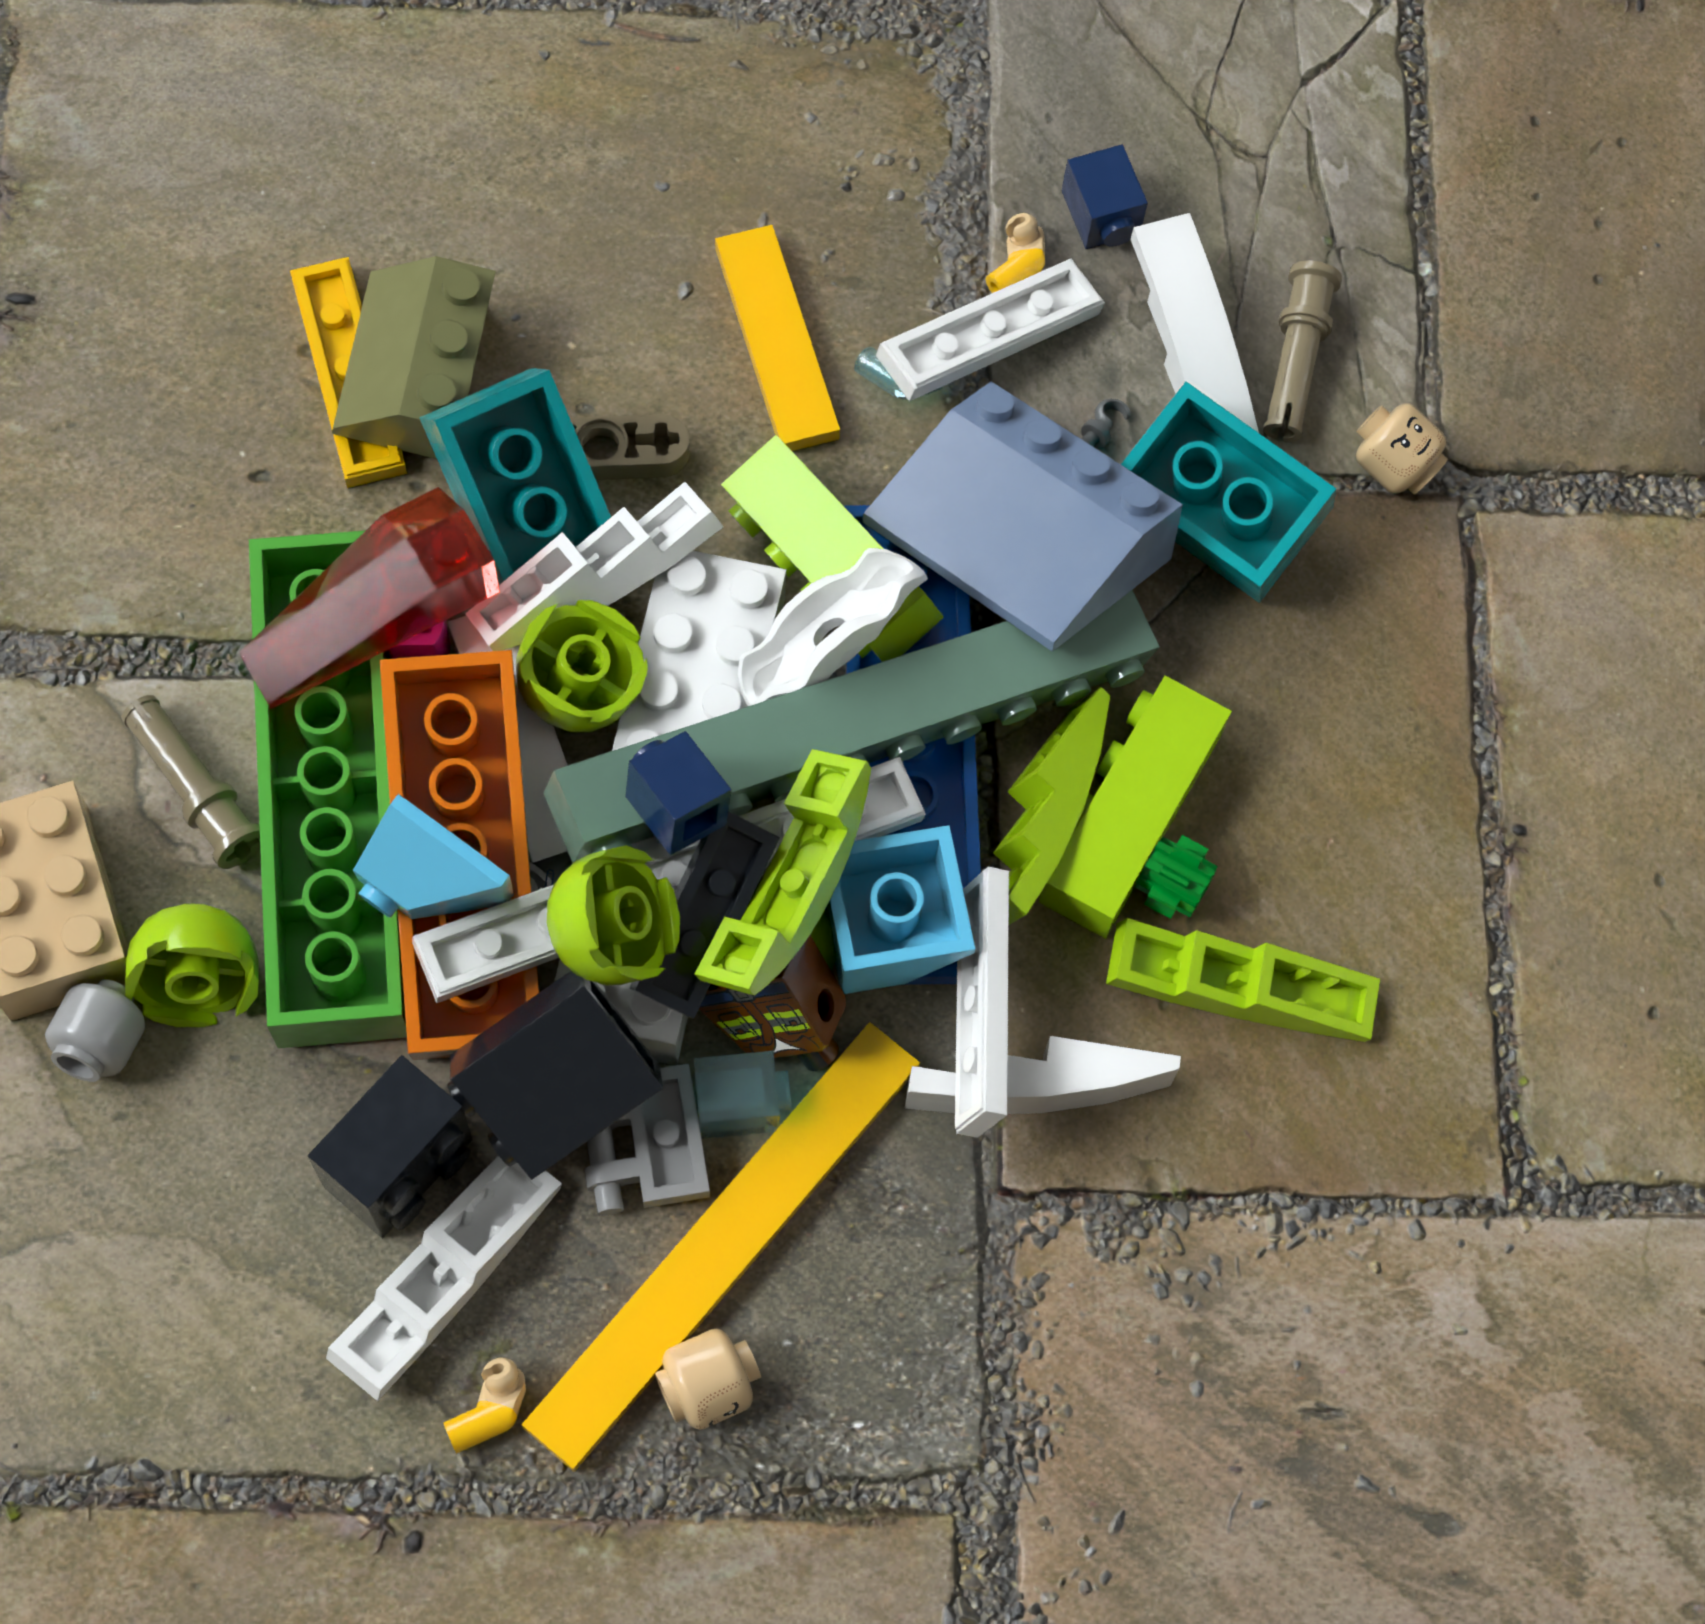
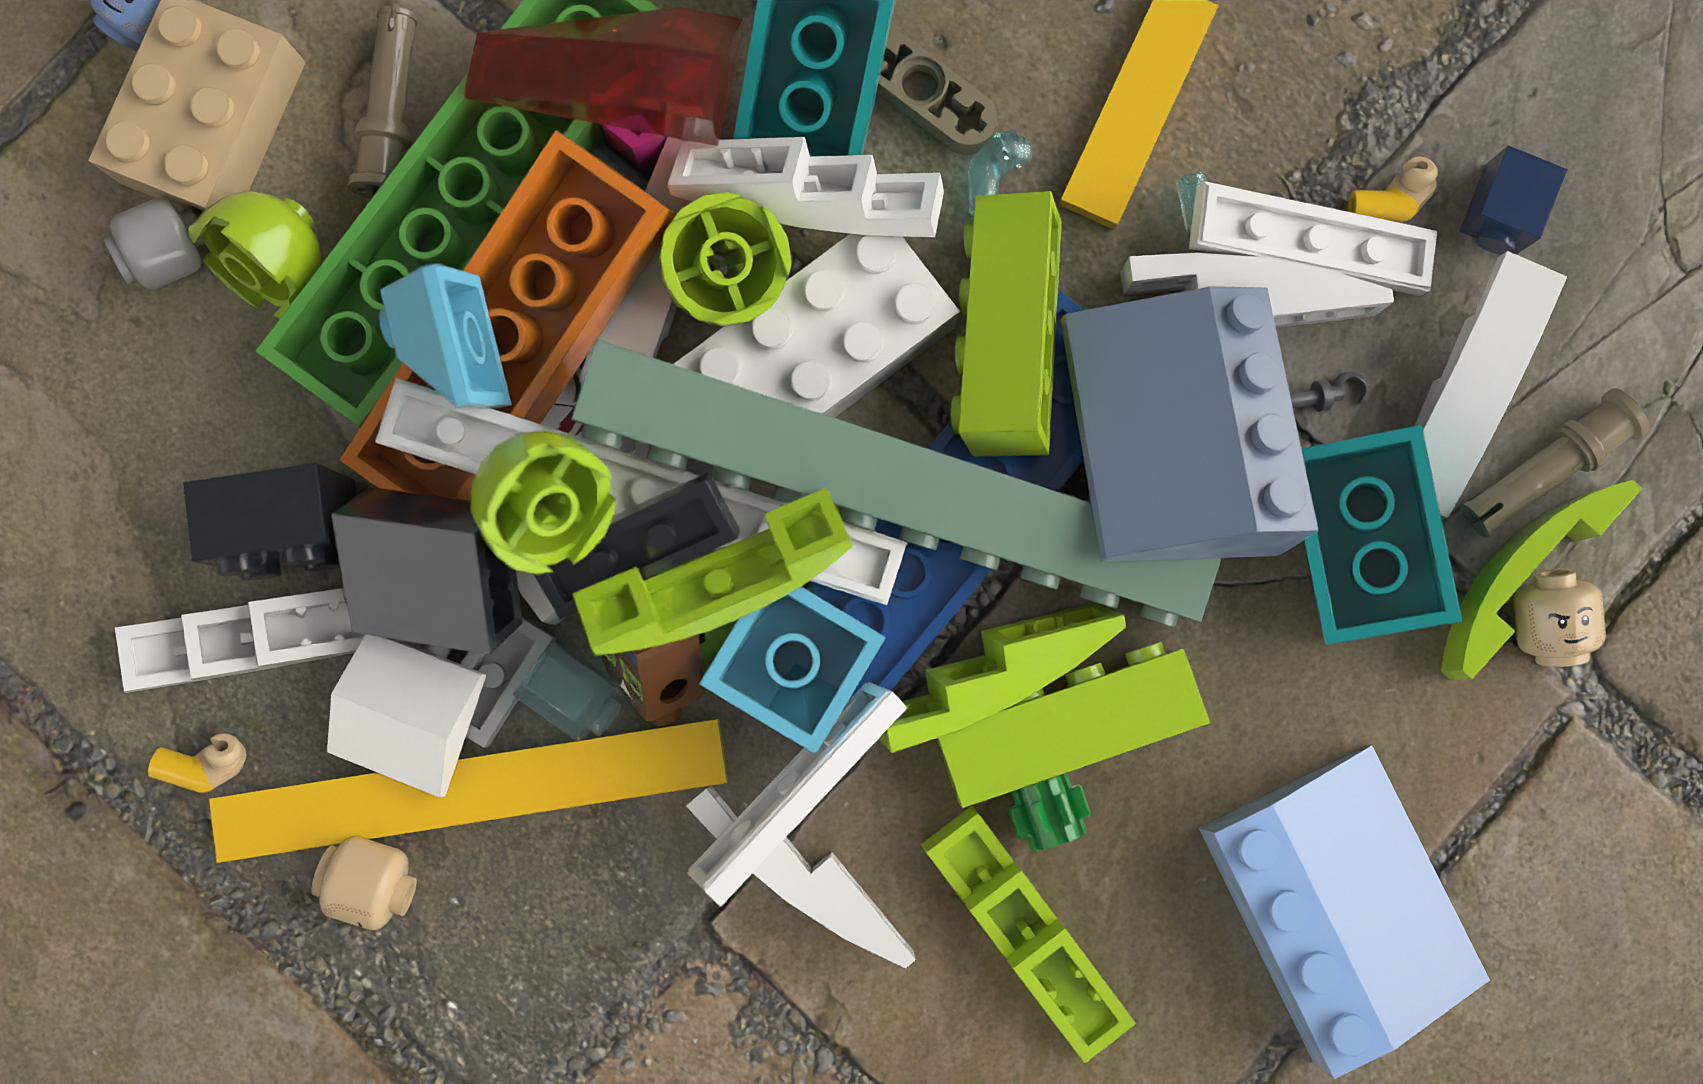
camera: 50 degrees right, 15 degrees up
(624, 1216) = (403, 712): none -> white slope
(677, 792) = (671, 440): dark blue brick -> none
(706, 460) = (1000, 154): none -> clear light blue arm
(854, 600) = (984, 392): white piece -> none
(1019, 368) = (1295, 290): none -> white slope
(1357, 496) = (1482, 630): none -> lime slope
(1445, 775) = (1345, 911): none -> light blue slope

